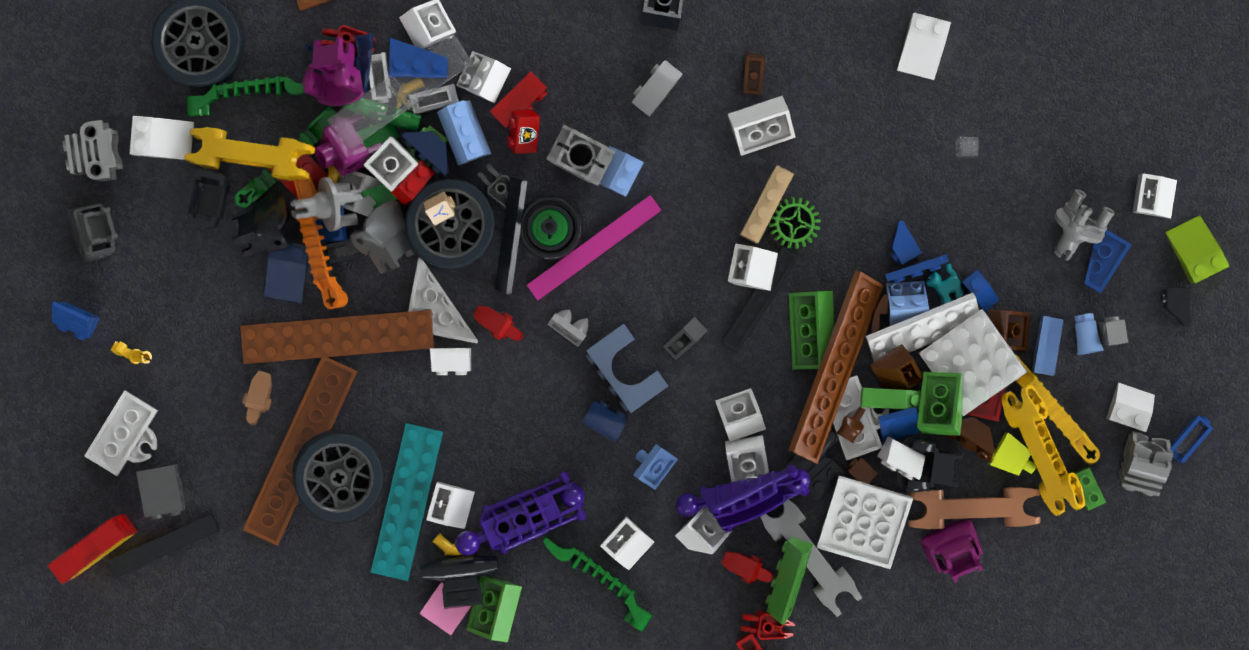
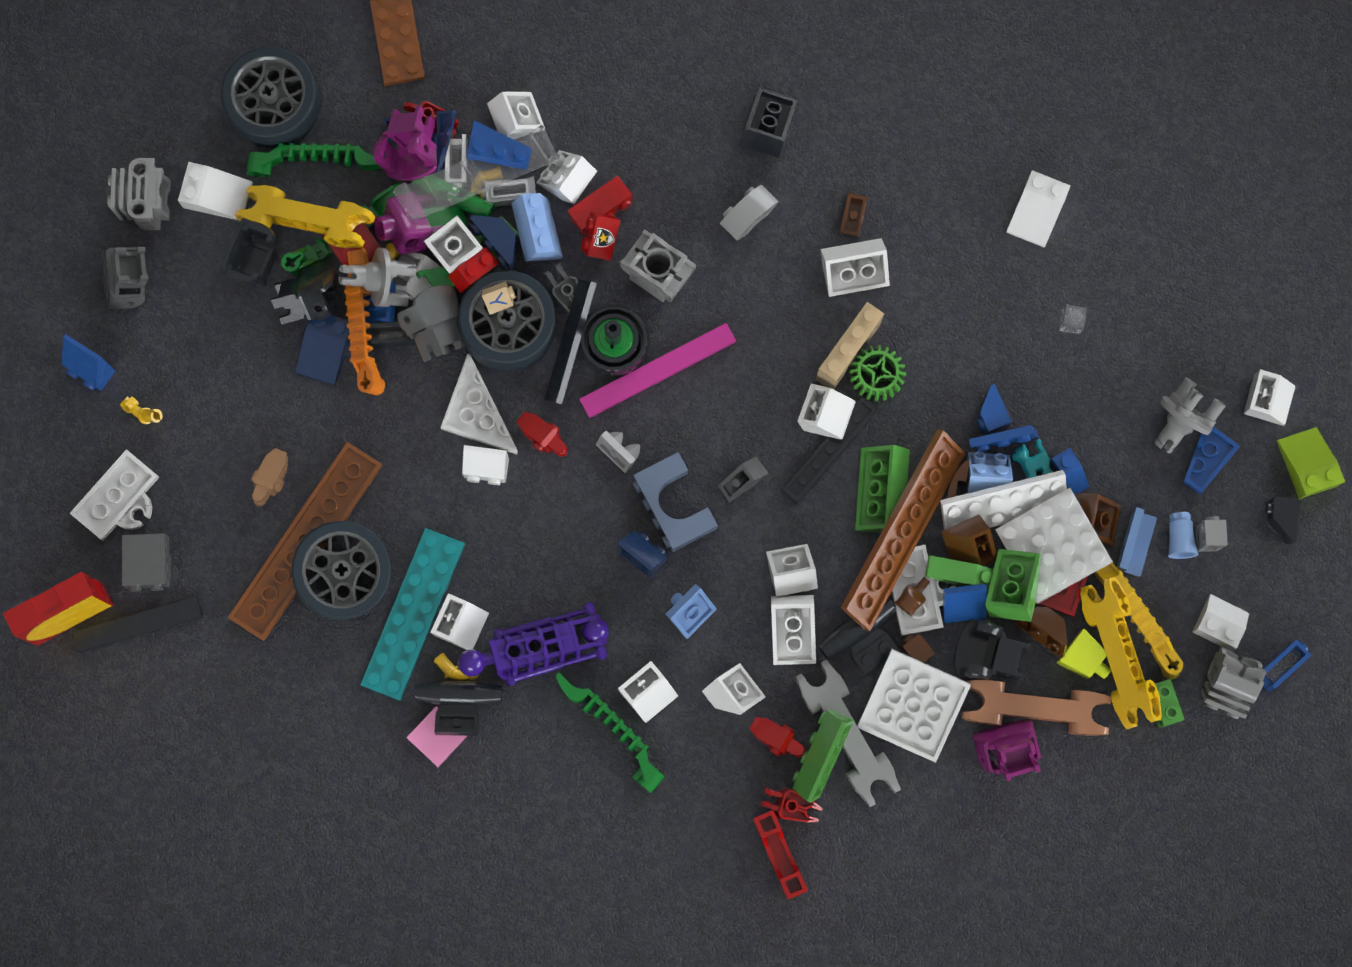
camera: 10 degrees right, 10 degrees down
(337, 336) = (366, 425): dark orange plate -> none
(496, 615) = (493, 747): bright green slope -> none
(621, 172) = (698, 295): light blue slope -> none
(746, 499) = (788, 659): dark purple piece -> none
(900, 456) = (964, 639): white slope -> none

